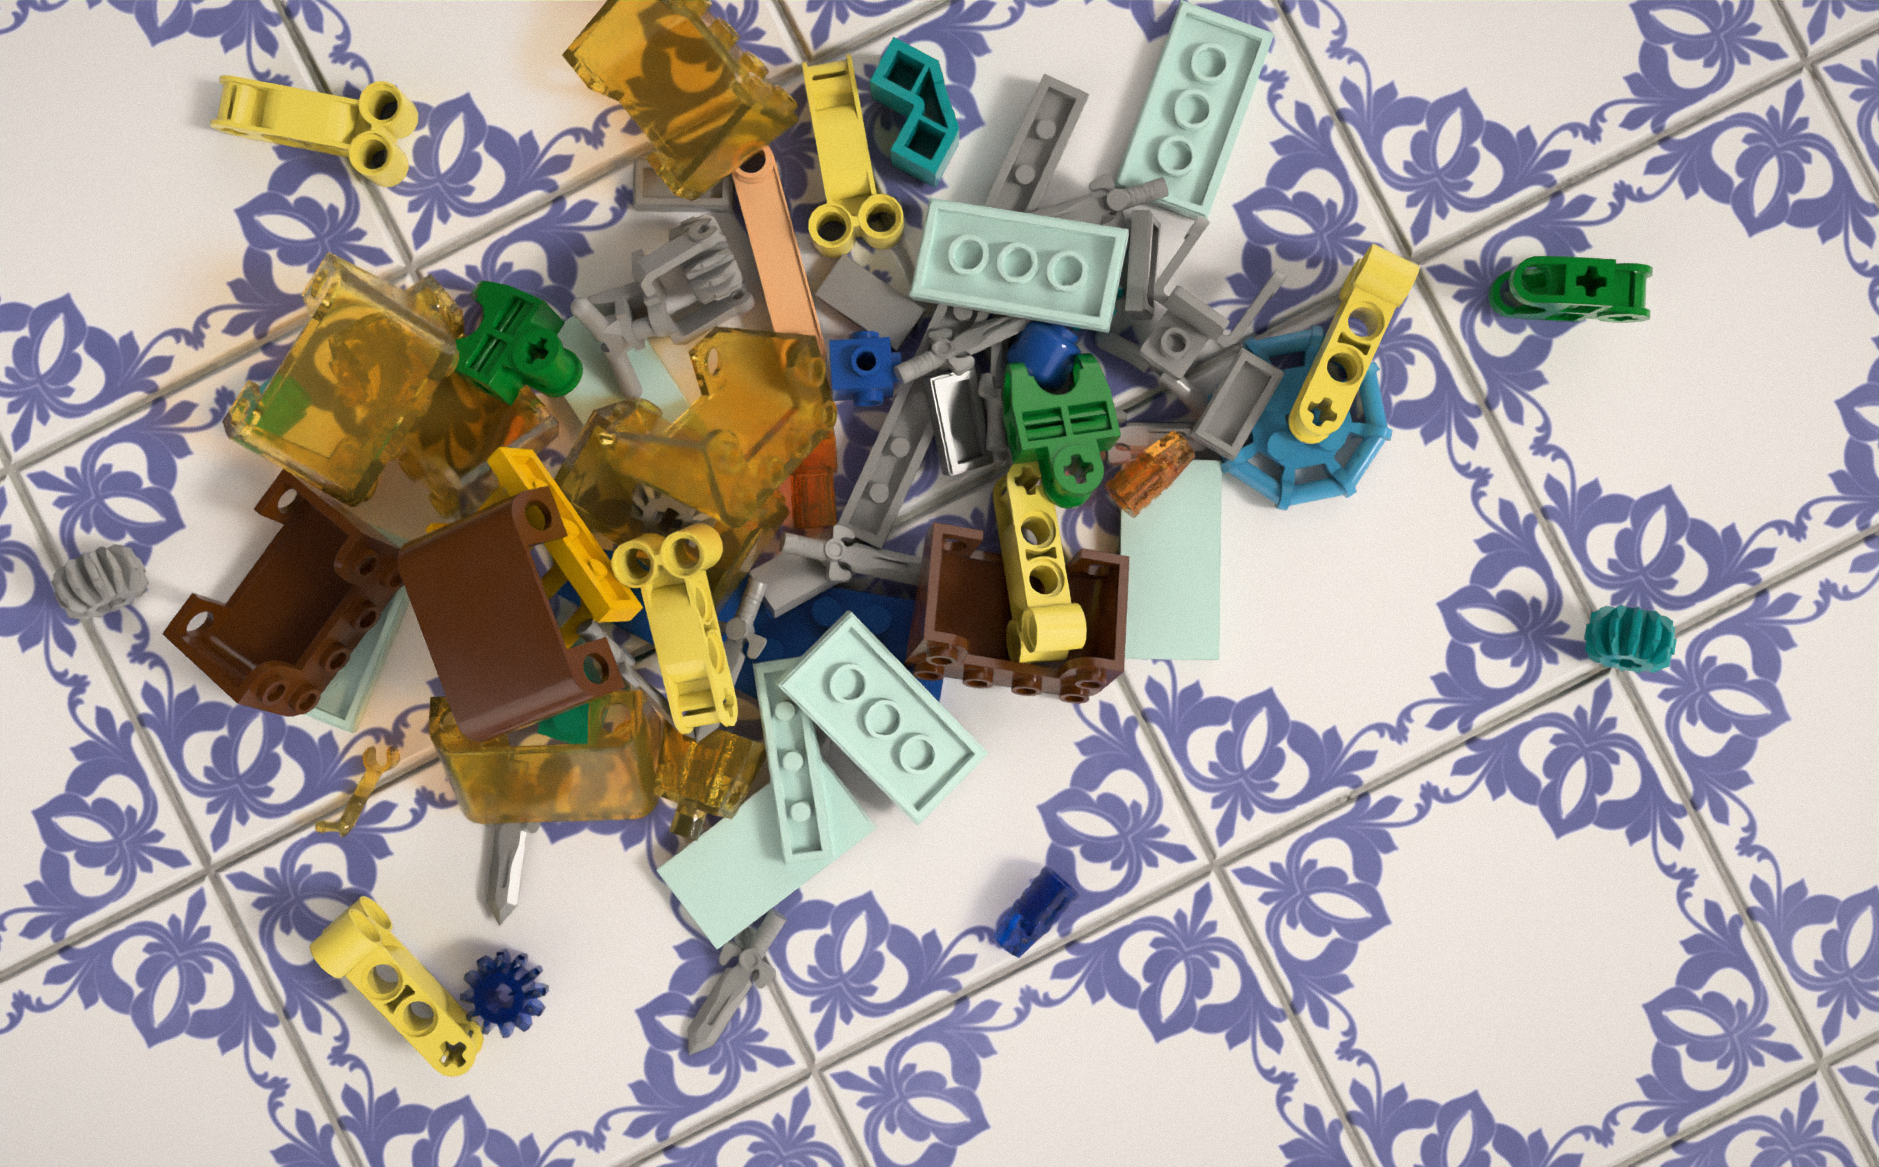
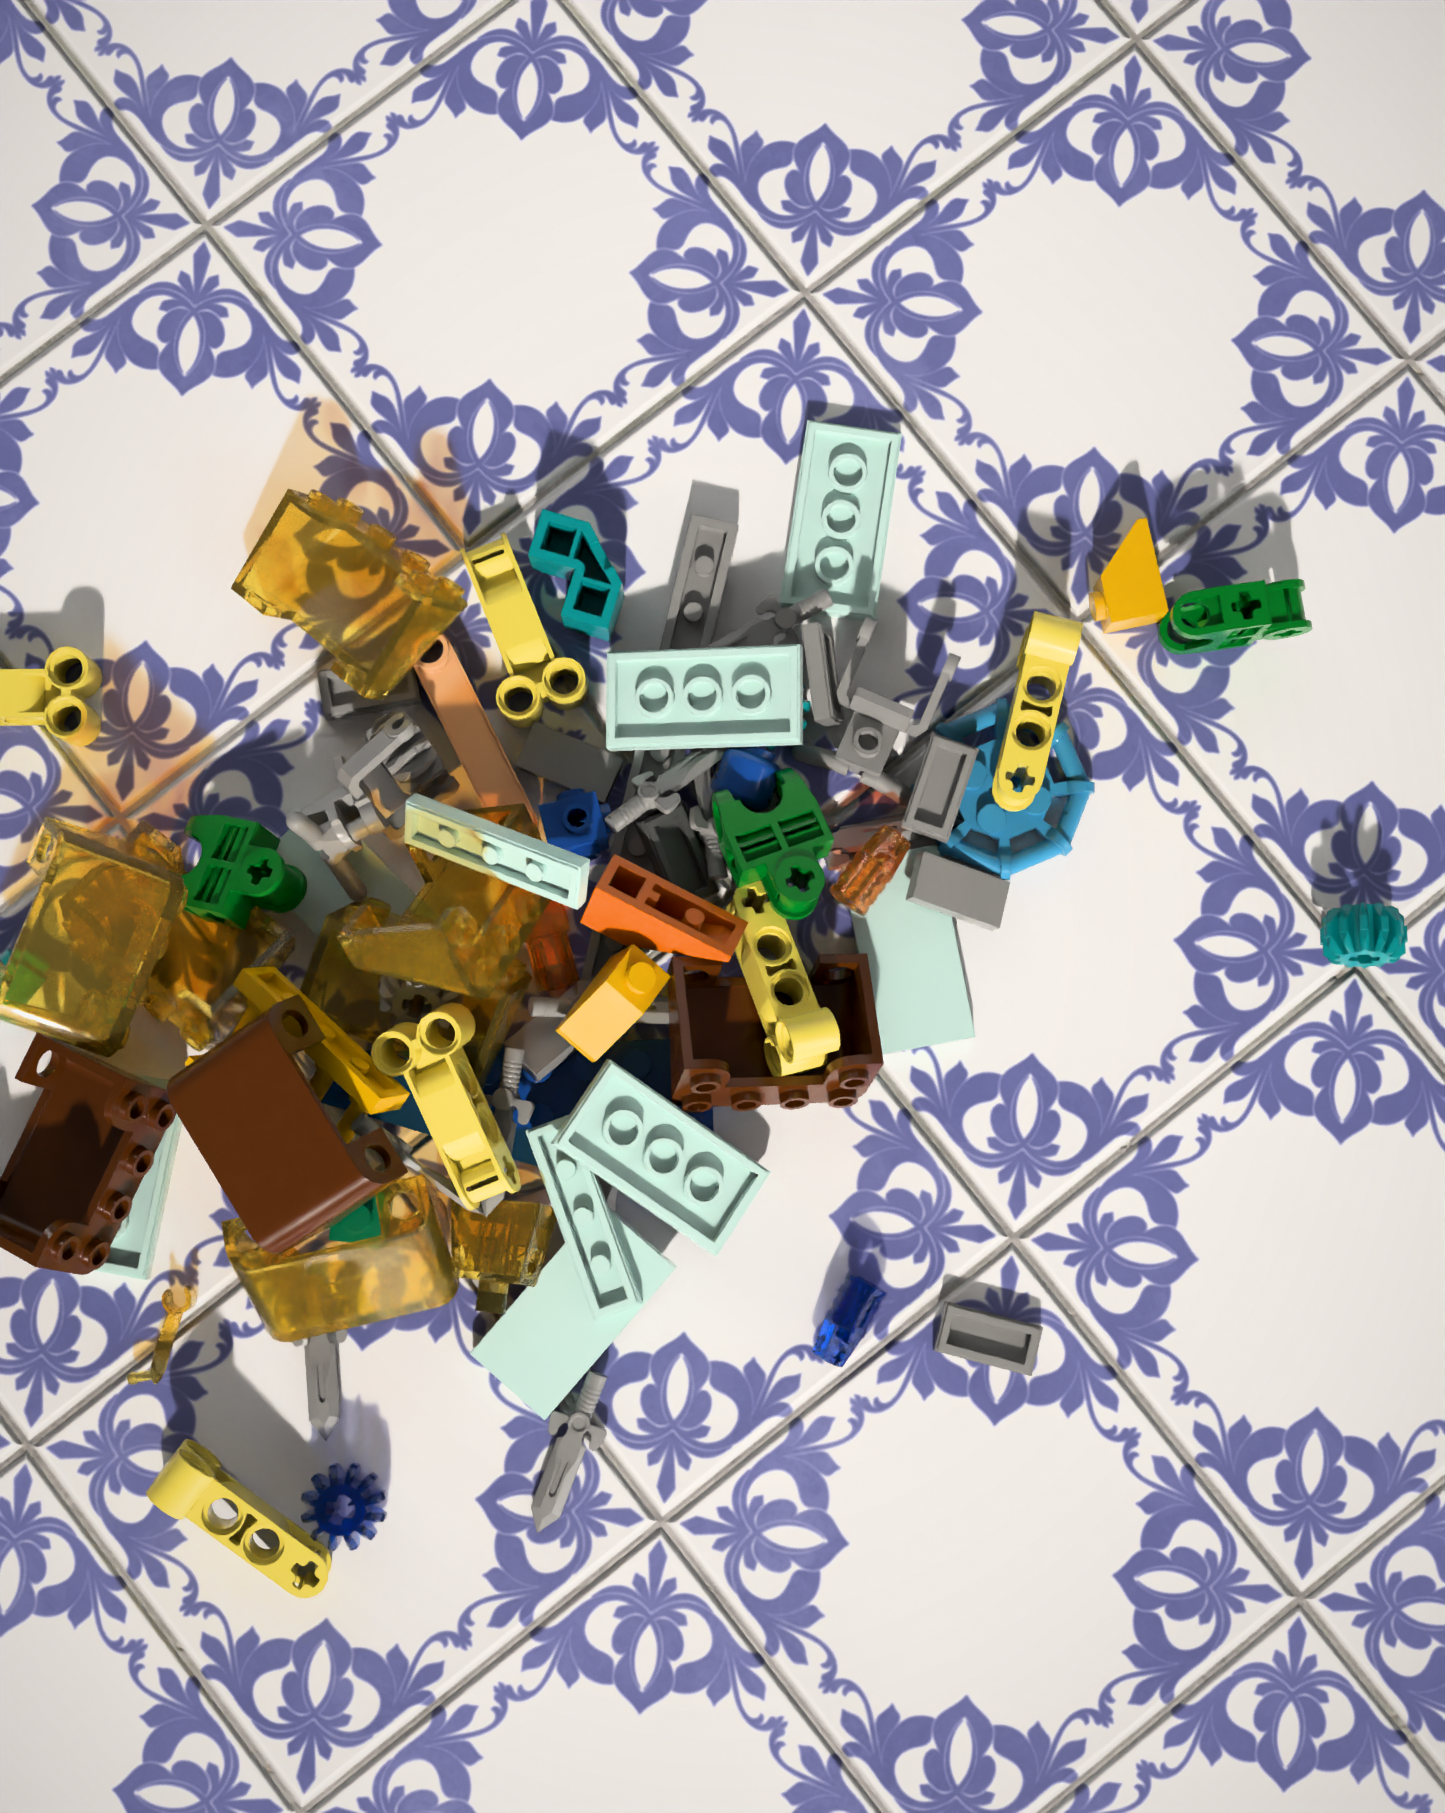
camera: 10 degrees left, 5 degrees down
(778, 379) = (496, 851): none -> light aqua tile
(865, 554) = (612, 1002): none -> yellow slope
(929, 477) = (659, 915): none -> orange slope
(1168, 958) = (988, 1338): none -> light grey tile
(1232, 511) = (957, 890): none -> light grey tile
(1474, 236) = (1131, 585): none -> yellow slope

